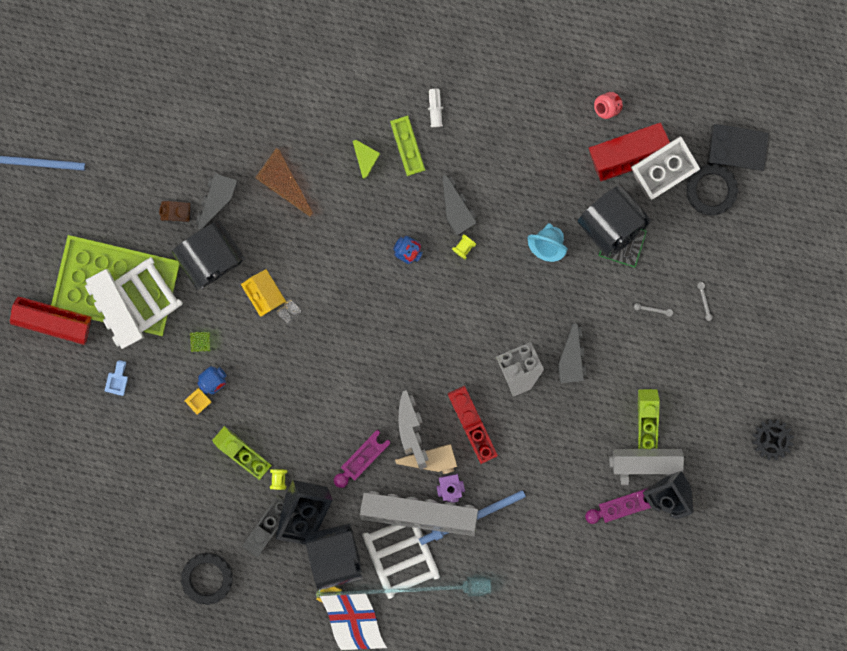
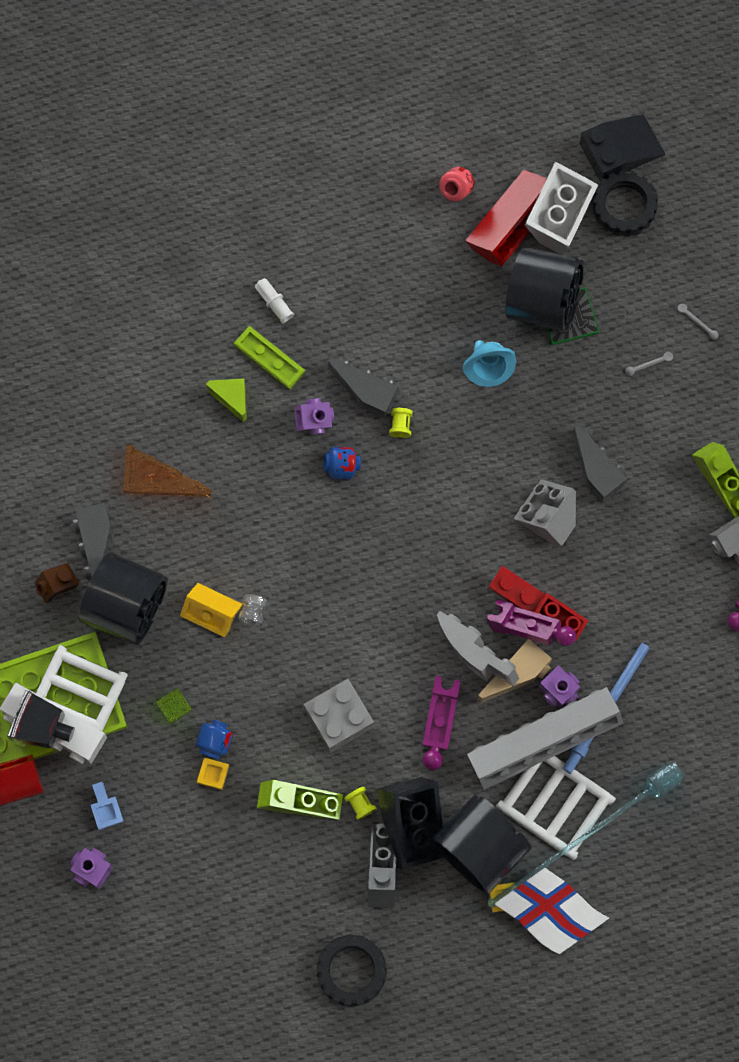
camera: 30 degrees left, 15 degrees down
(91, 413) = (94, 876): none -> medium lavender brick
(104, 307) = (39, 723): none -> black torso
(299, 415) = (339, 715): none -> light grey brick
(409, 207) = (314, 416): none -> medium lavender brick
(457, 437) = (529, 625): none -> magenta plate

